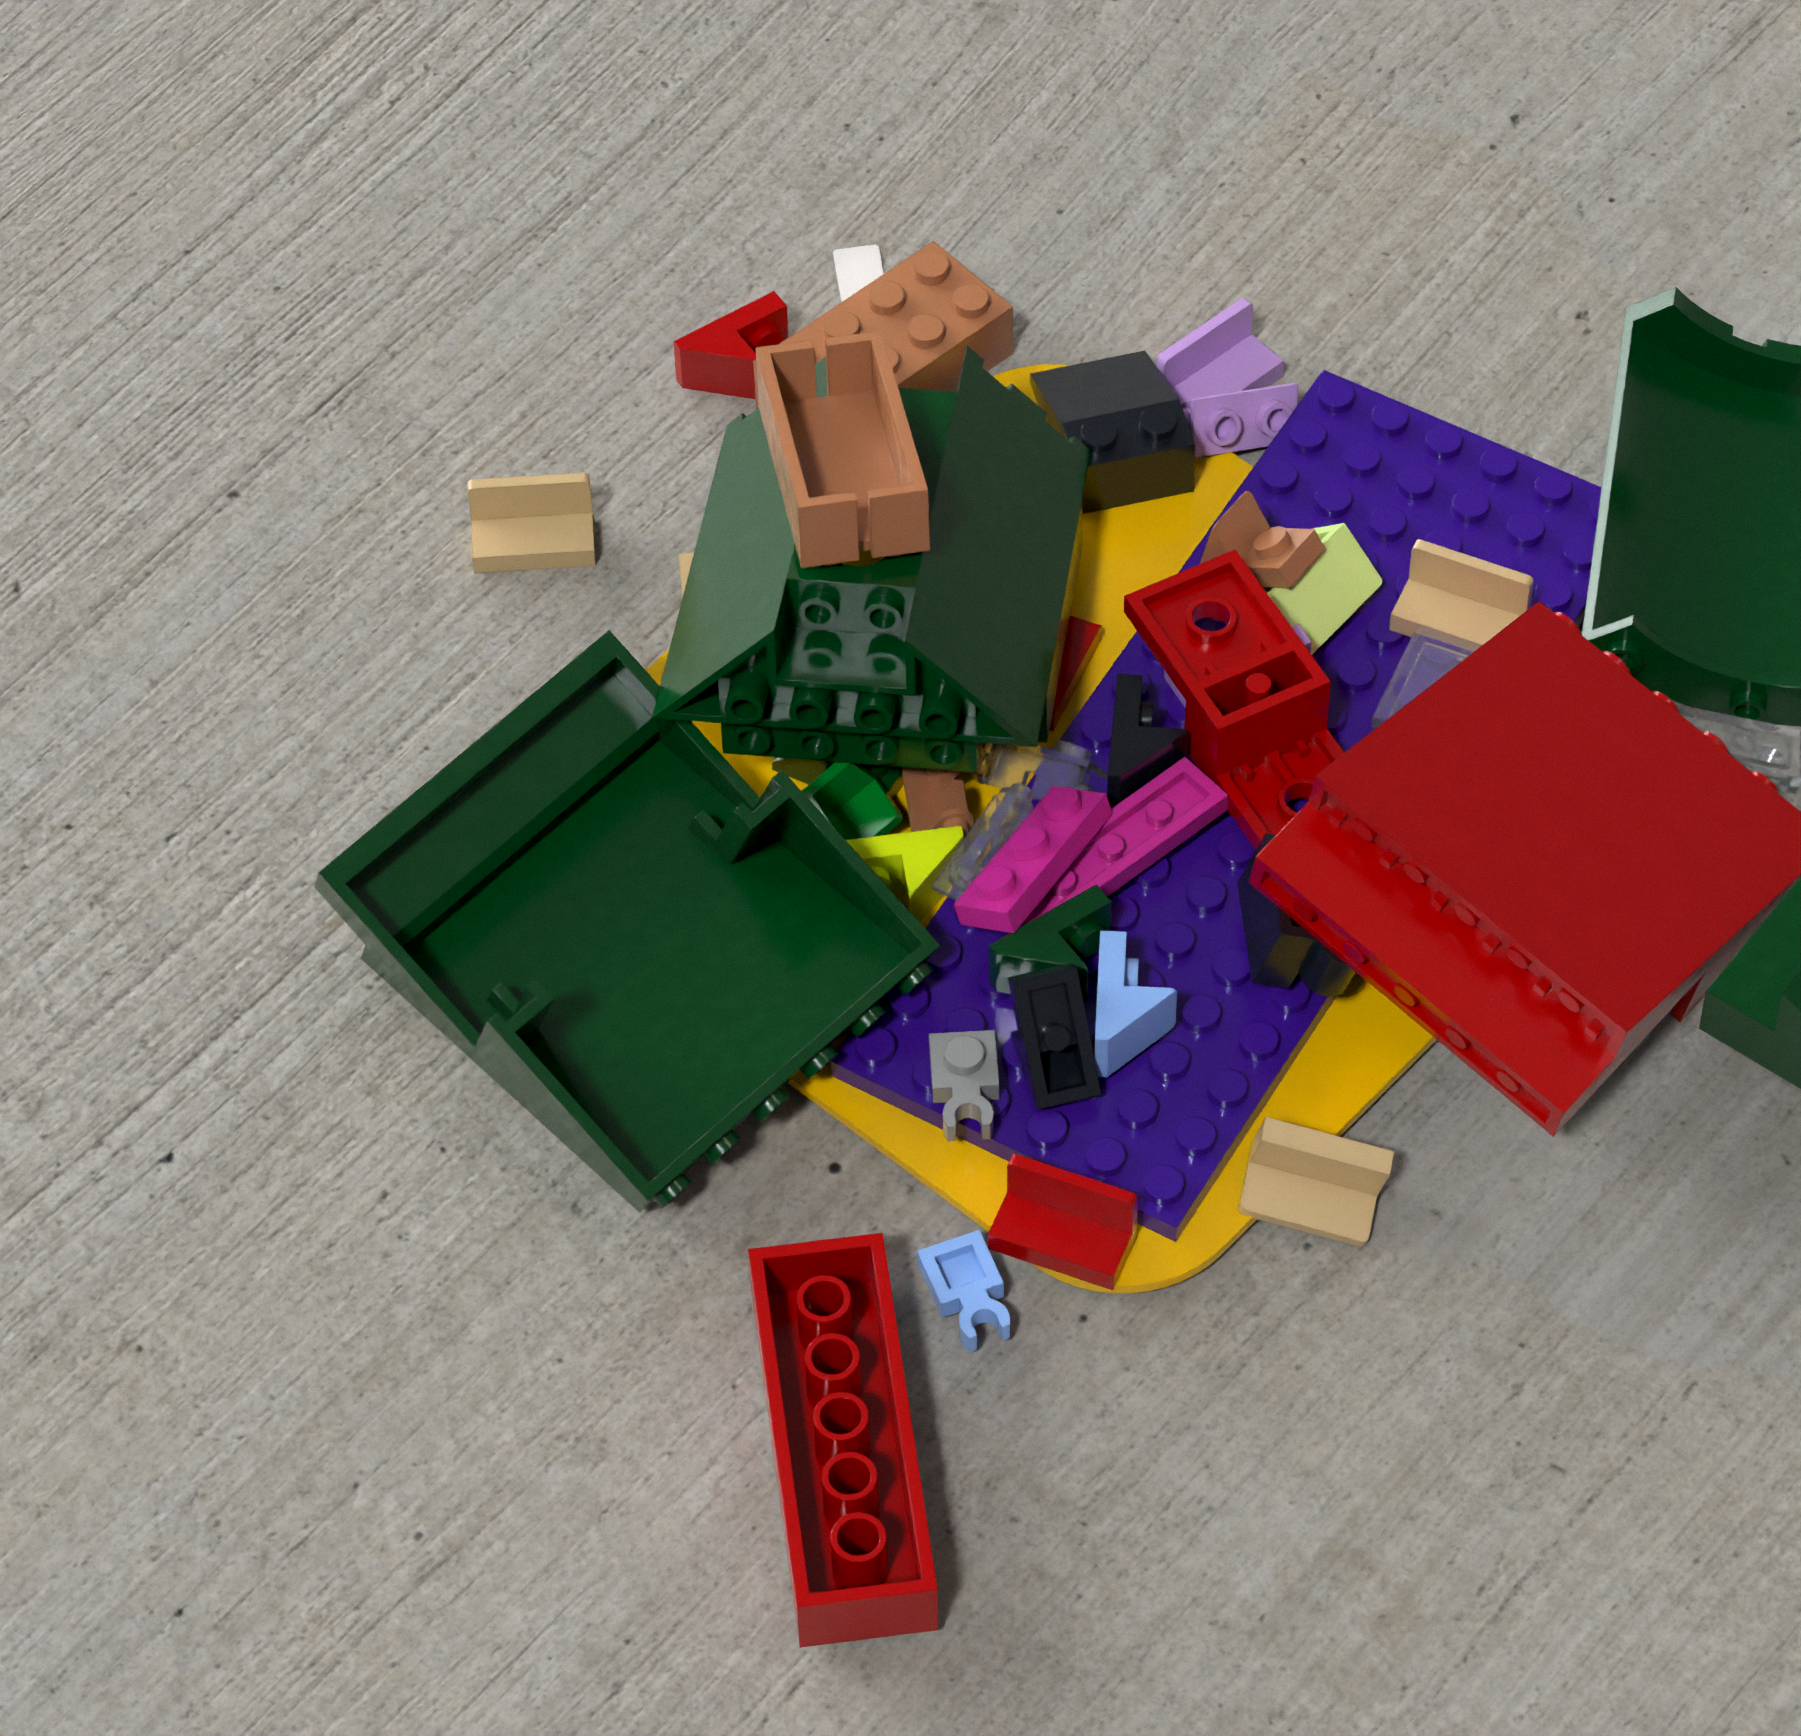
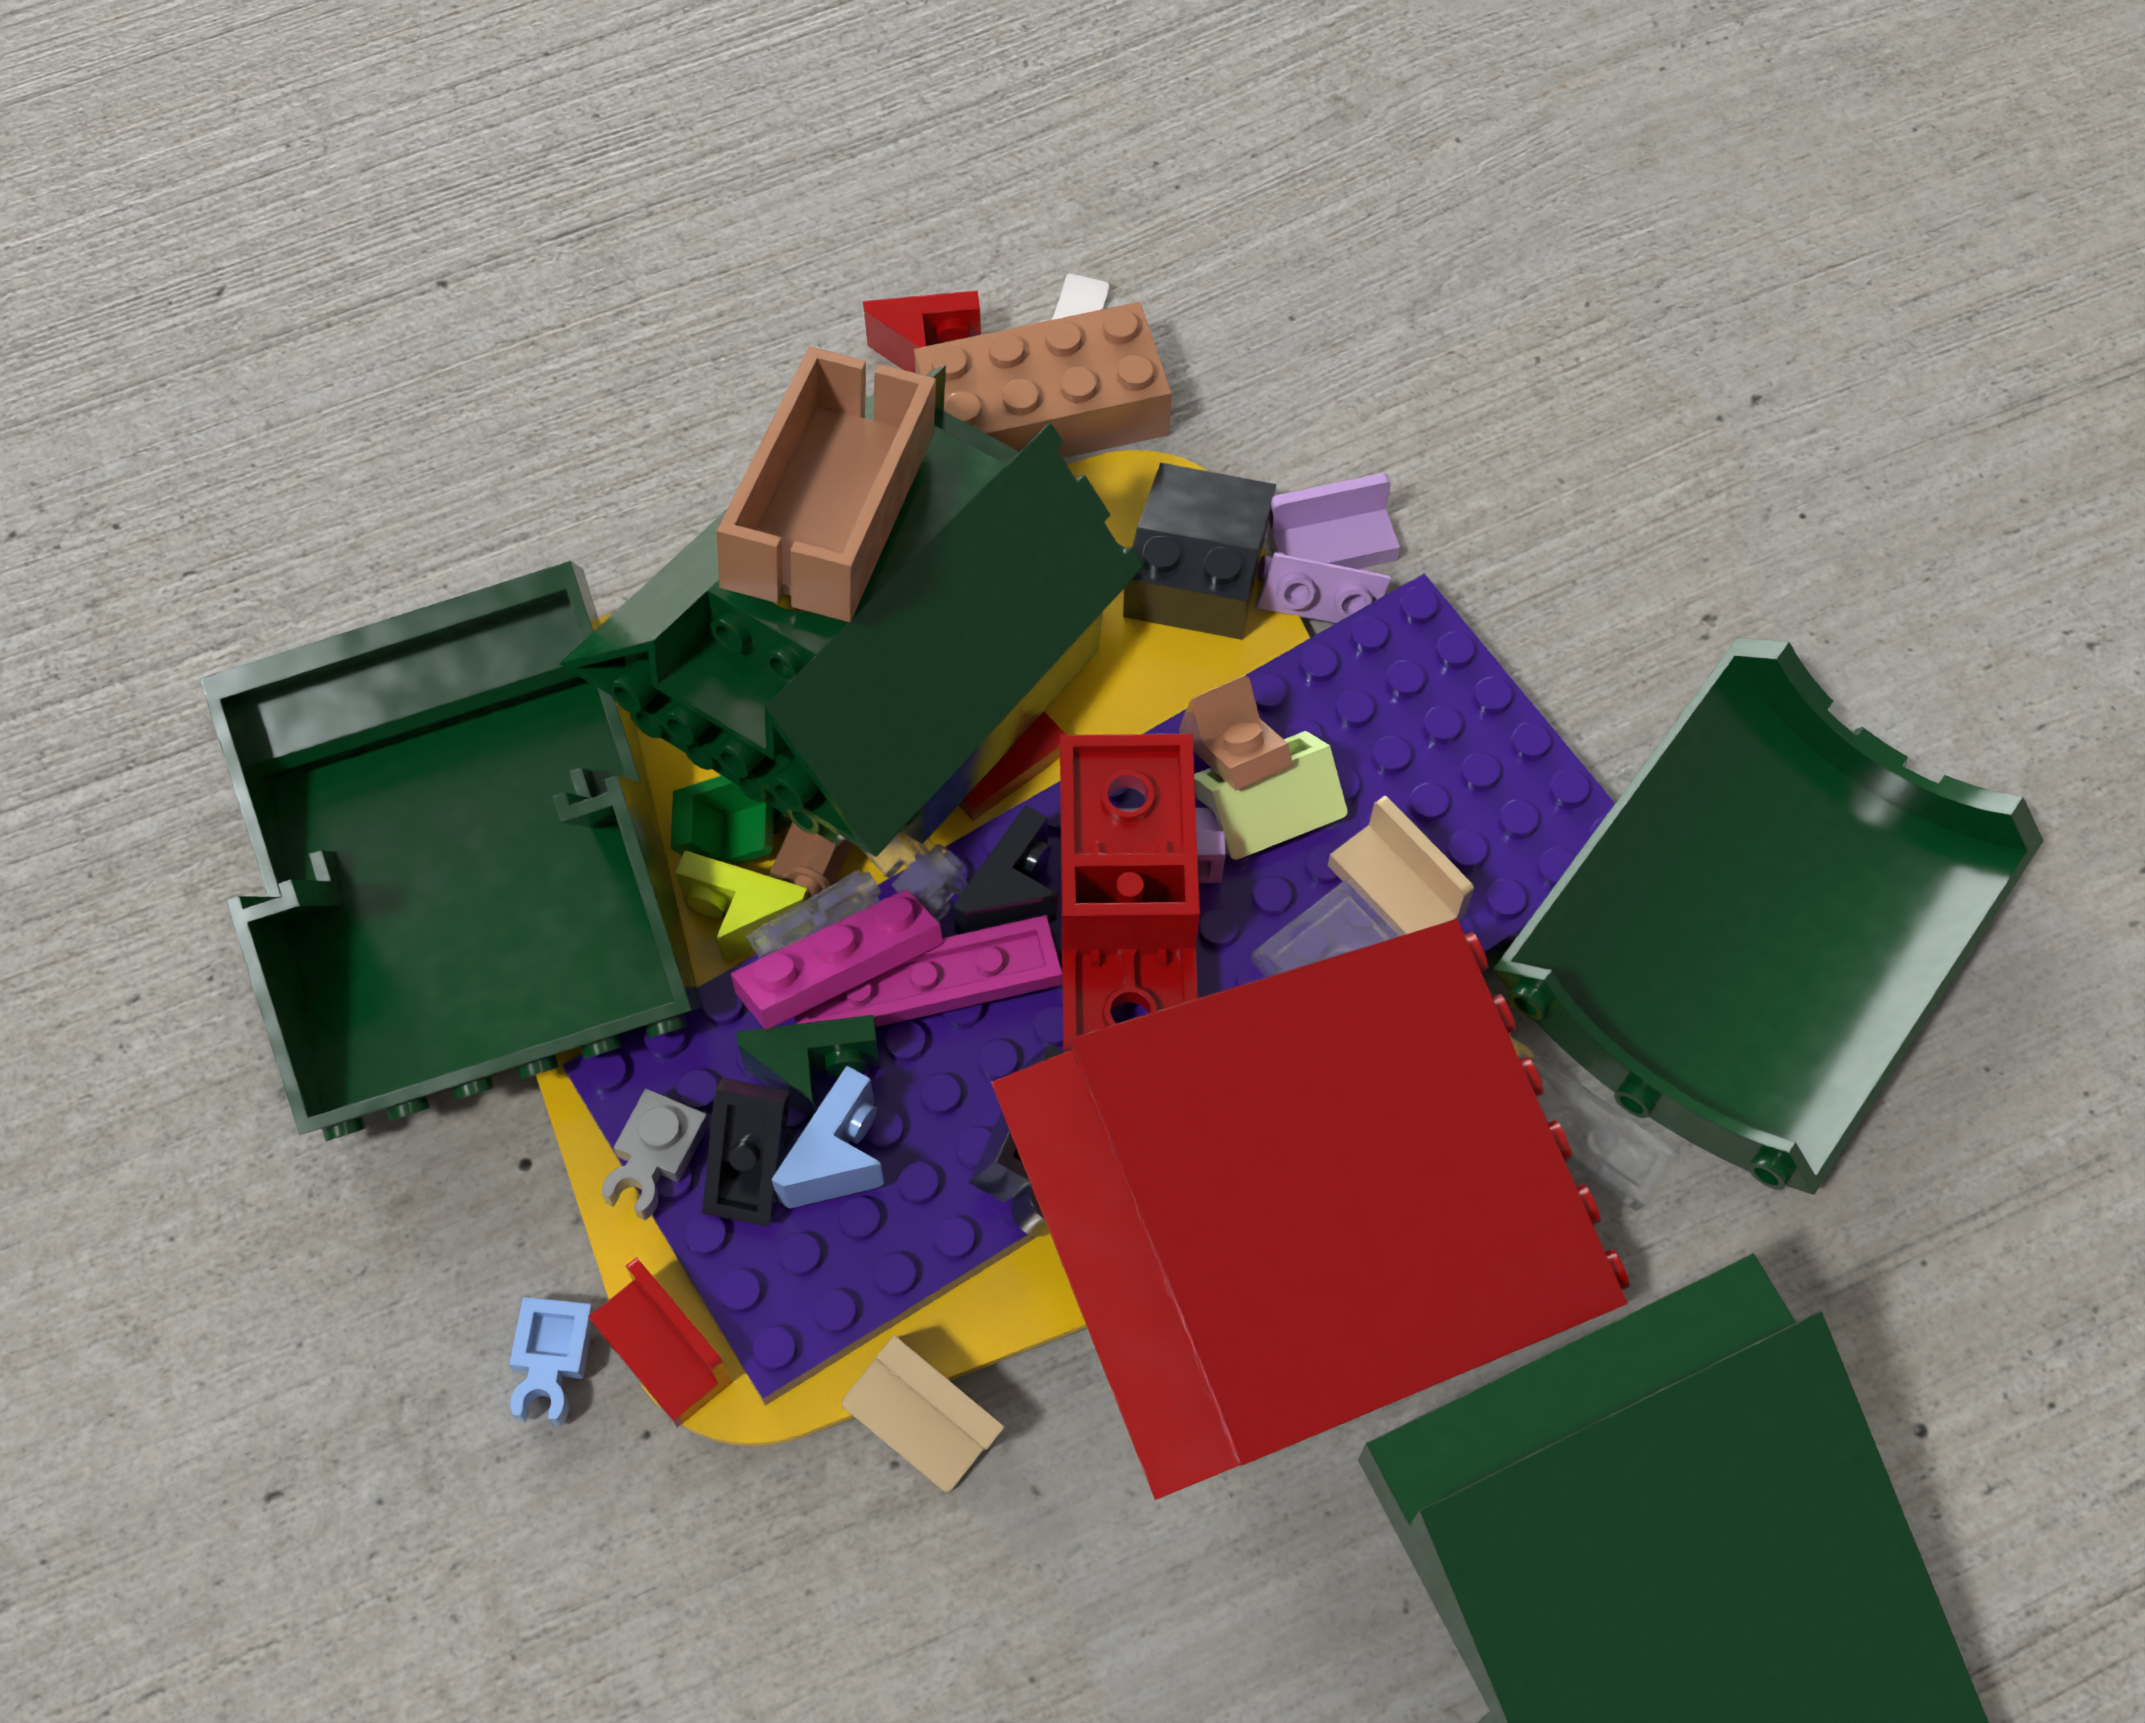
camera: 25 degrees right, 10 degrees up
(531, 522) = (652, 418): tan panel -> none
(842, 1441) = (323, 1470): red brick -> none

